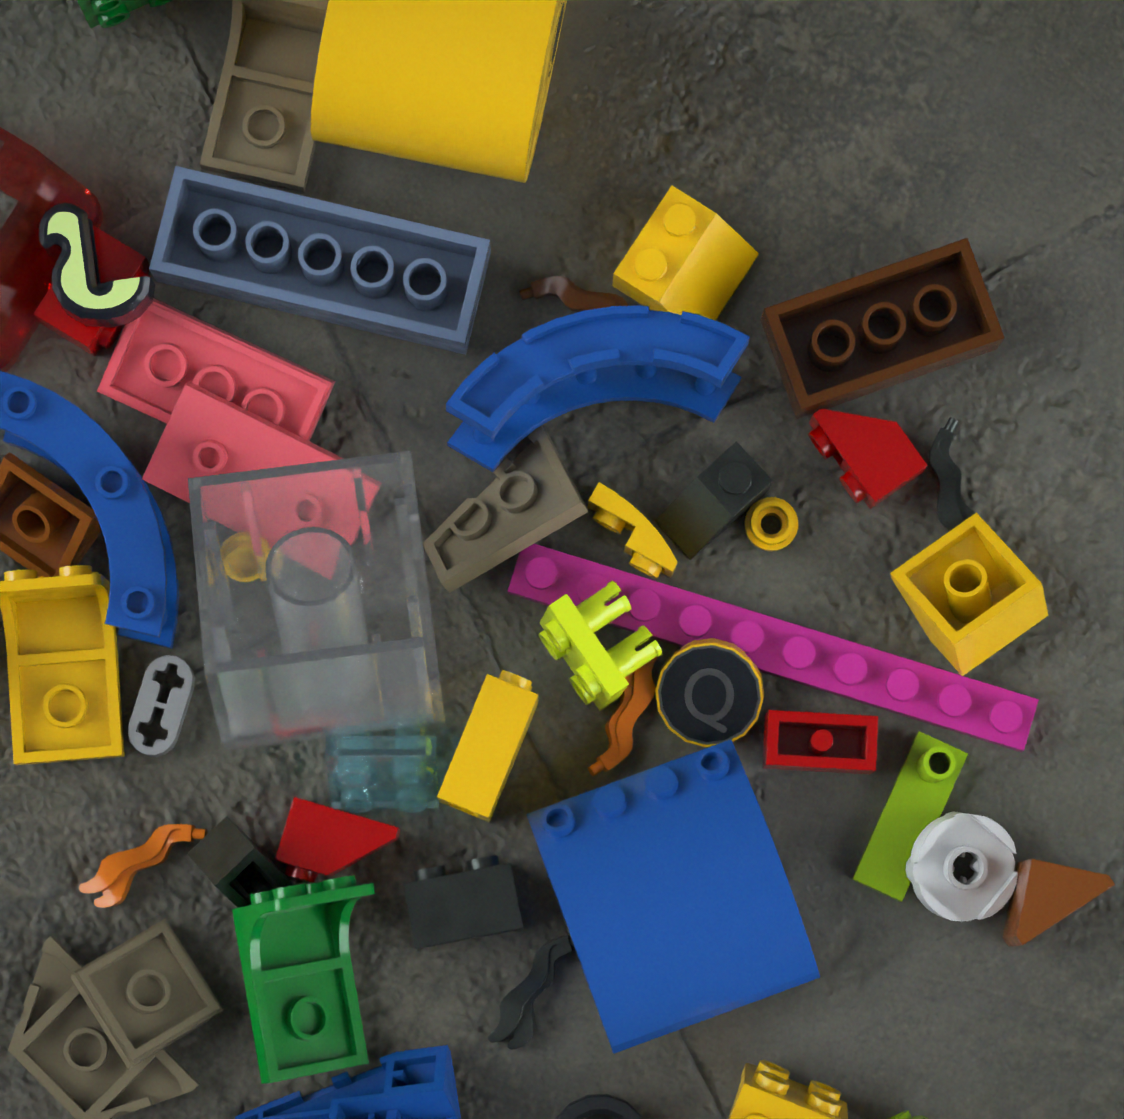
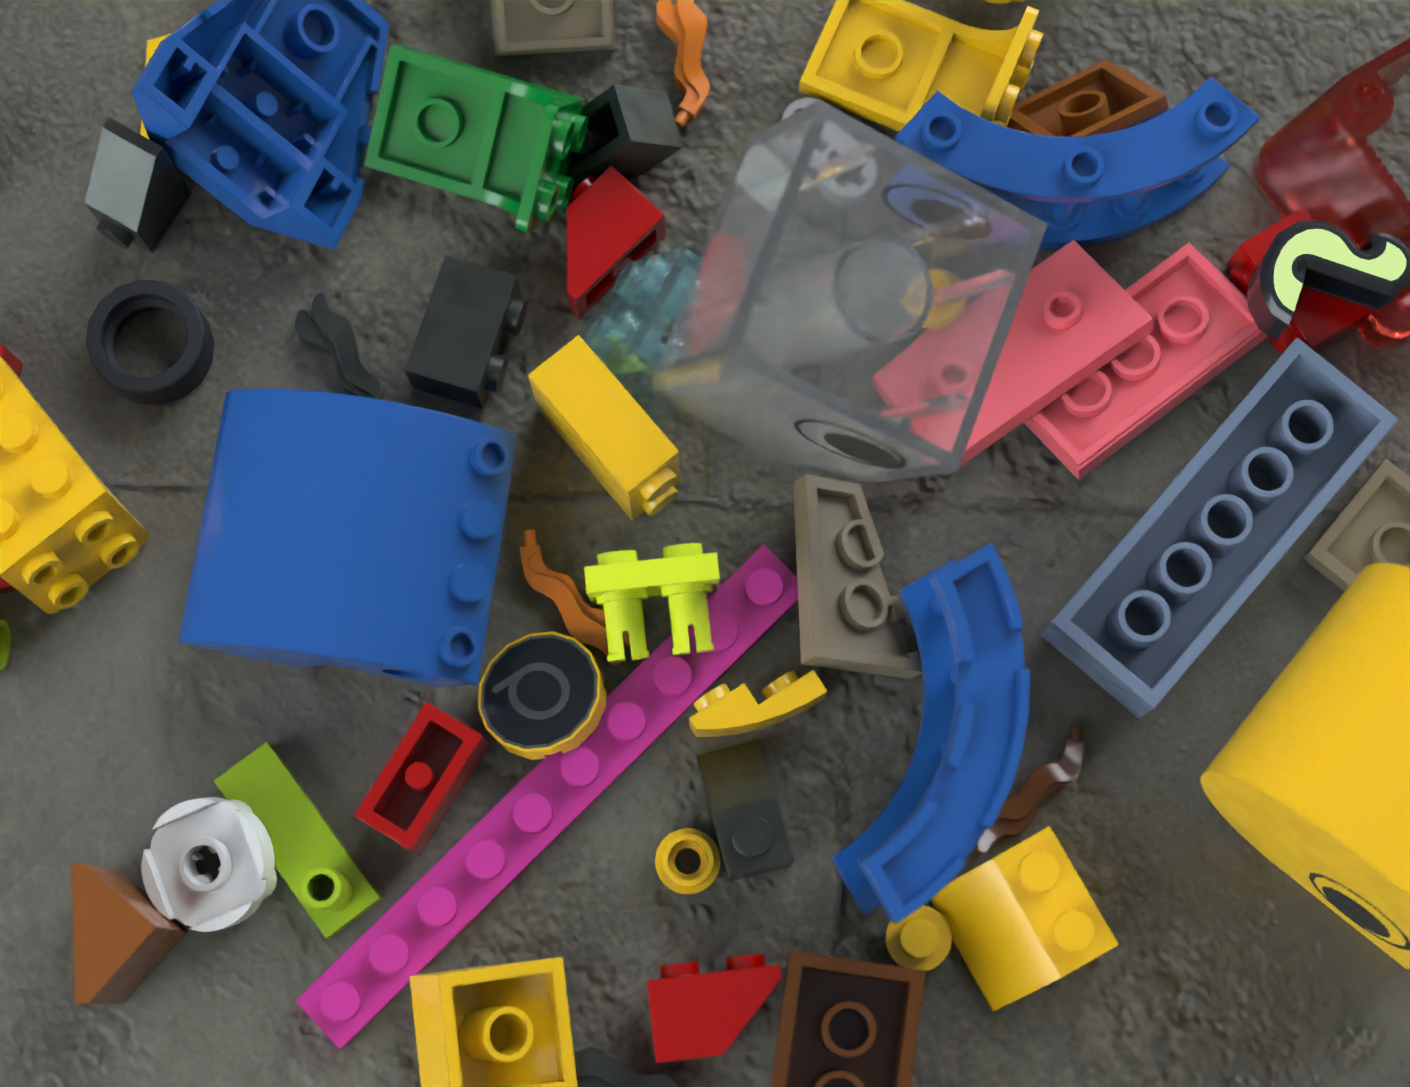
camera: 120 degrees right, 5 degrees down
(746, 321) = (919, 939): none -> yellow plate

